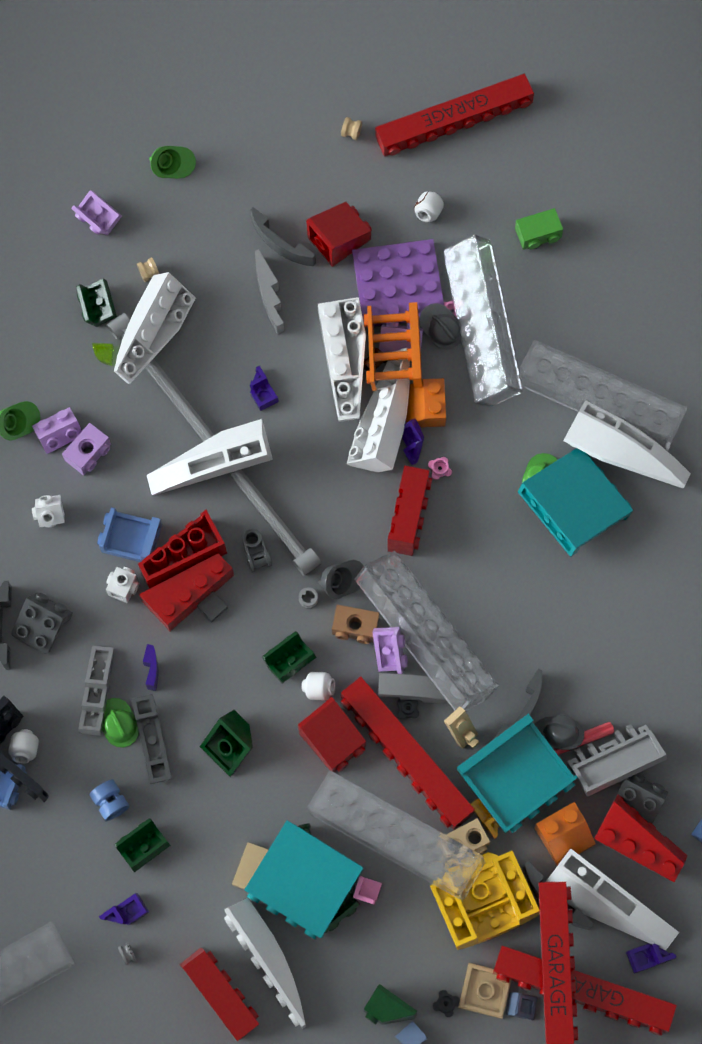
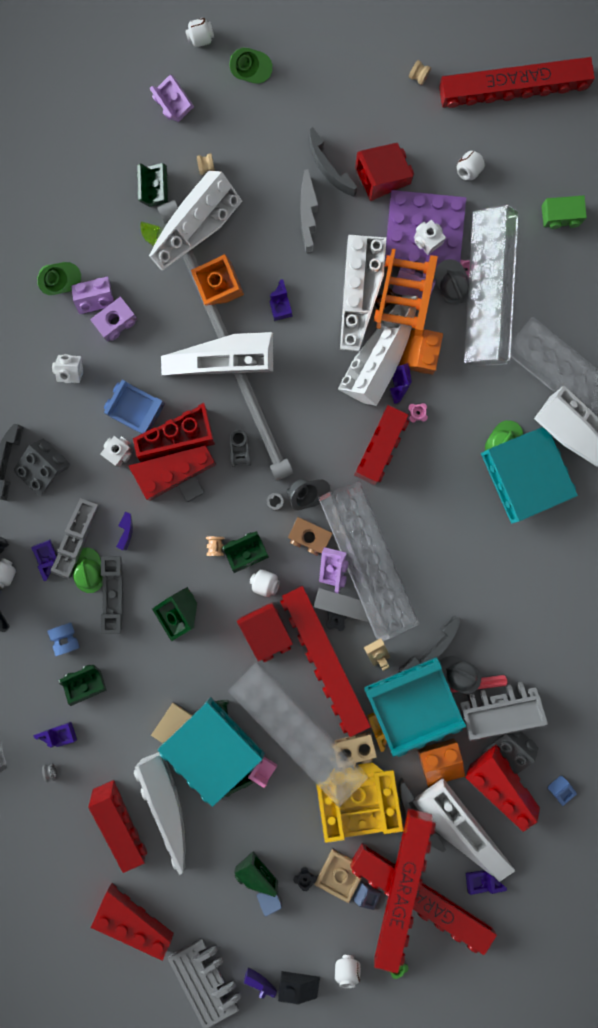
camera: 10 degrees right, 15 degrees up
(67, 718) = (45, 556): none -> dark purple slope
(111, 142) = (200, 32): none -> white head
(190, 383) = (217, 281): none -> orange slope
(254, 660) = (215, 546): none -> light nougat bush
(403, 286) = (429, 236): none -> white brick

